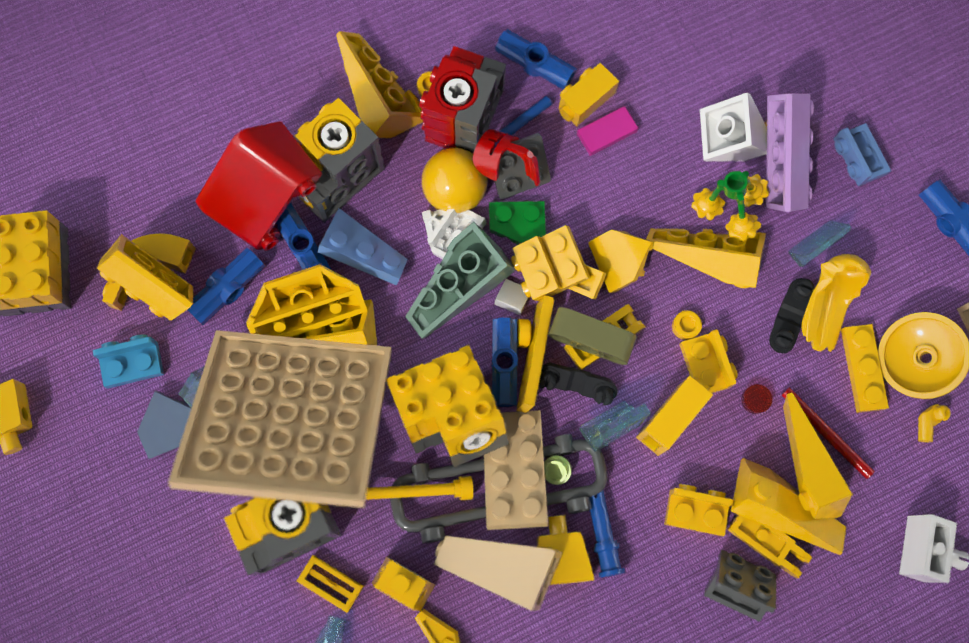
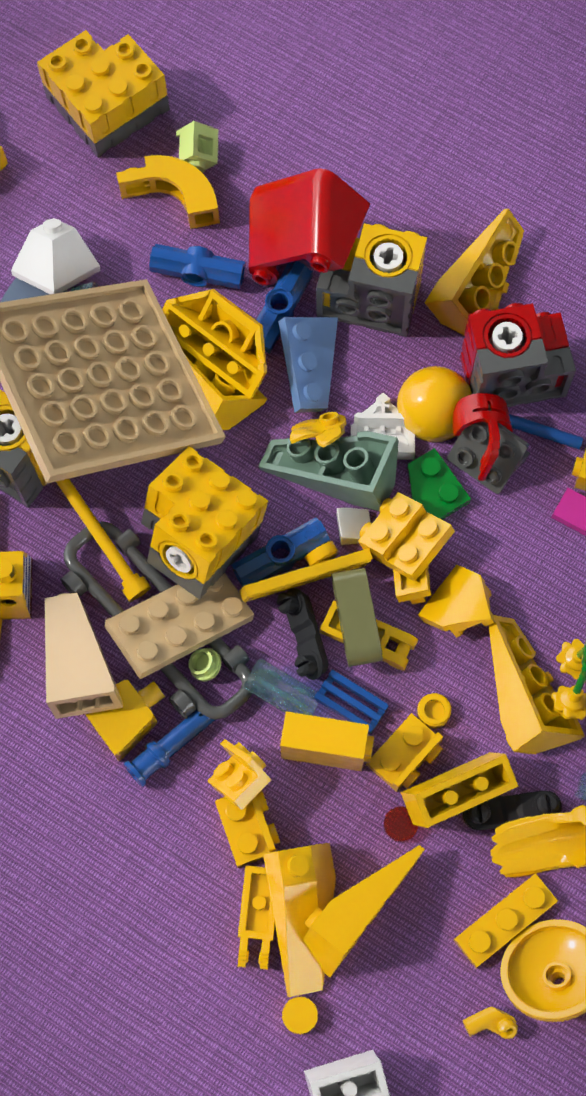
camera: 65 degrees right, 5 degrees down
(120, 220) = (198, 145): none -> yellowish green brick
(129, 361) = (92, 231): dark azure bracket -> none
(146, 279) = (157, 192): yellow slope -> none
(146, 393) = (54, 258): none -> white slope
(424, 272) = (325, 429): none -> yellow plate
(664, 496) = (240, 776): none -> yellow bracket
(668, 369) = (357, 690): none -> blue tile
(742, 586) = (197, 909): dark grey bracket -> none
(762, 342) = (459, 789): none -> yellow brick
(833, 438) = (410, 919): red bar -> none
(856, 554) = (299, 1015): none -> yellow tile

